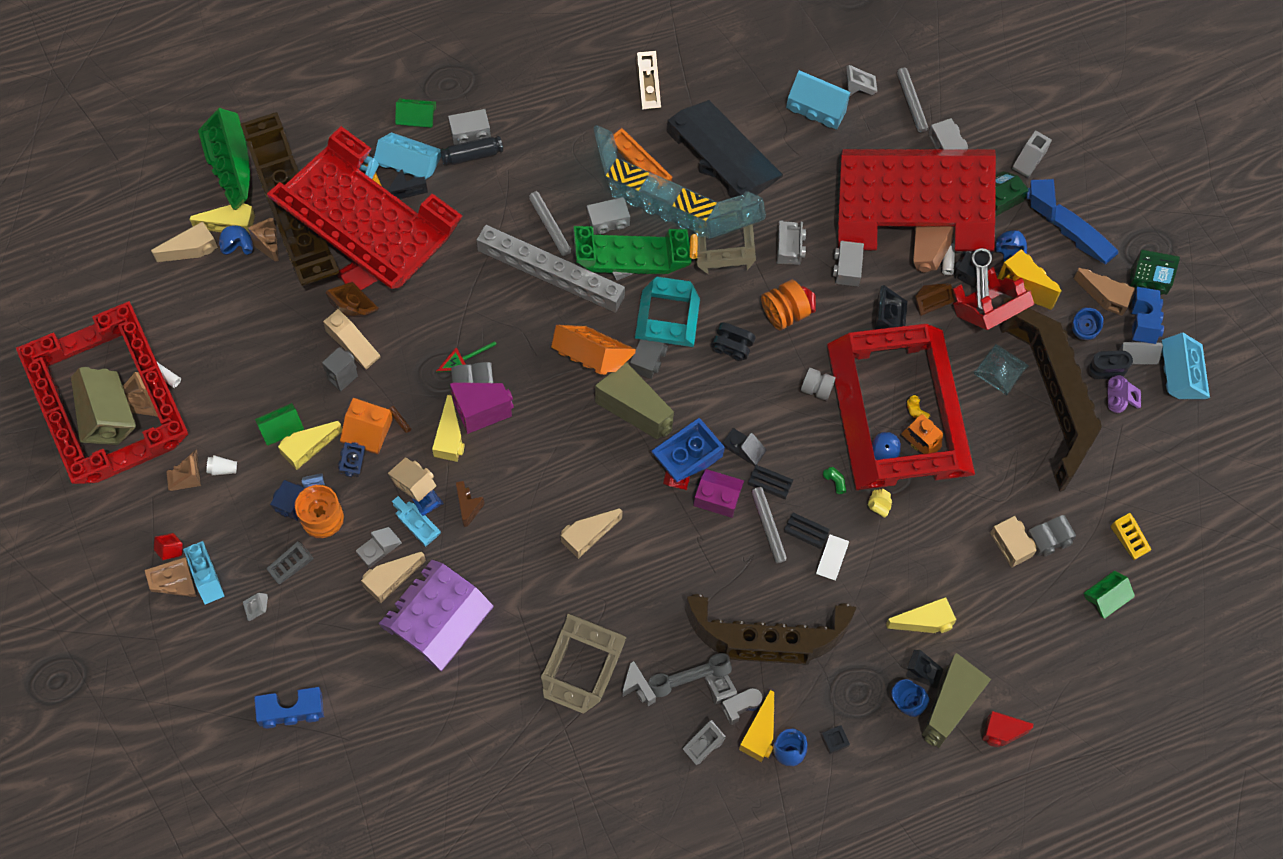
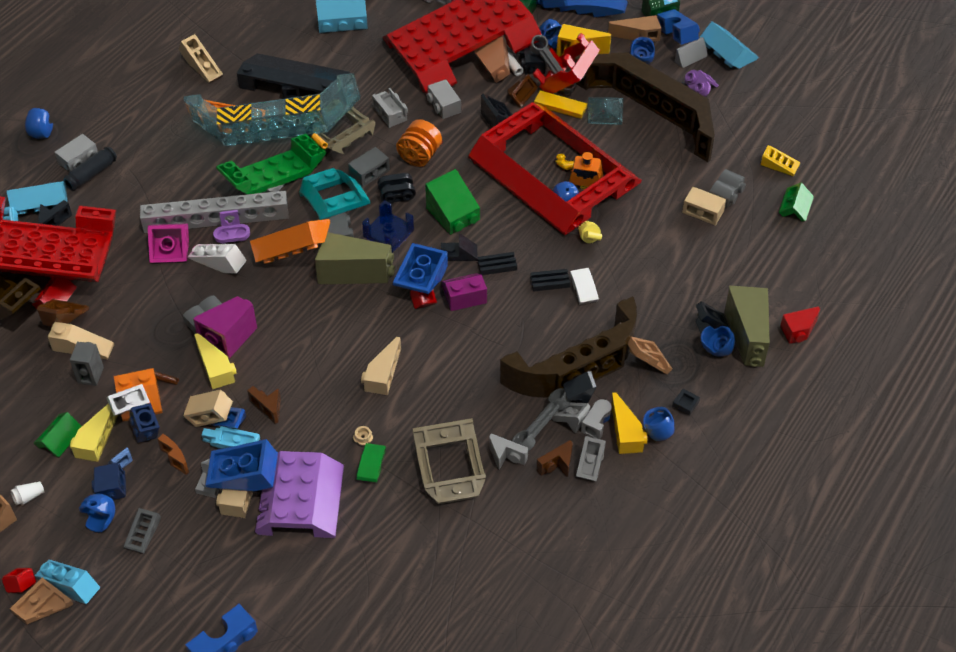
camera: 30 degrees left, 15 degrees down
(255, 605) = (133, 580): light grey slope -> none
(266, 525) = (100, 511): none -> blue helmet
(321, 502) = (143, 473): orange wheel -> none
(347, 431) = (125, 400): none -> slope
(359, 508) = (175, 455): none -> dark orange slope
(399, 561) = (243, 467): none -> blue slope
(415, 112) = (23, 167): green panel -> none
(453, 72) = (38, 124): none -> blue helmet
(455, 358) = (177, 318): green piece -> none
(489, 277) = (168, 242): none -> dark pink slope
(516, 620) = (371, 462): none -> green slope
(522, 320) = (221, 257): none -> white slope
(527, 583) = (363, 431): none -> tan plate
(550, 223) = (189, 184): light grey axle -> none
(551, 298) = (231, 231): none -> medium lavender bracket
(608, 215) = (238, 151): light grey hinge -> none
(682, 721) = (558, 457): none -> reddish brown slope
(695, 382) = (388, 227): none -> clear blue panel
(724, 301) = (369, 166): none -> dark grey brick
(741, 669) = (580, 388): none -> black slope
(769, 525) = (519, 291): light grey axle -> none
(770, 392) = (451, 202): none -> green slope
(818, 384) = (485, 181): light grey wheel -> none
(836, 669) = (649, 353): none -> medium nougat wing
(837, 477) = (546, 234): green arm -> none
(927, 618) = (685, 286): light yellow slope -> none
(961, 336) = (561, 104): none -> yellow tile
(1110, 364) = (679, 65): black brick -> none

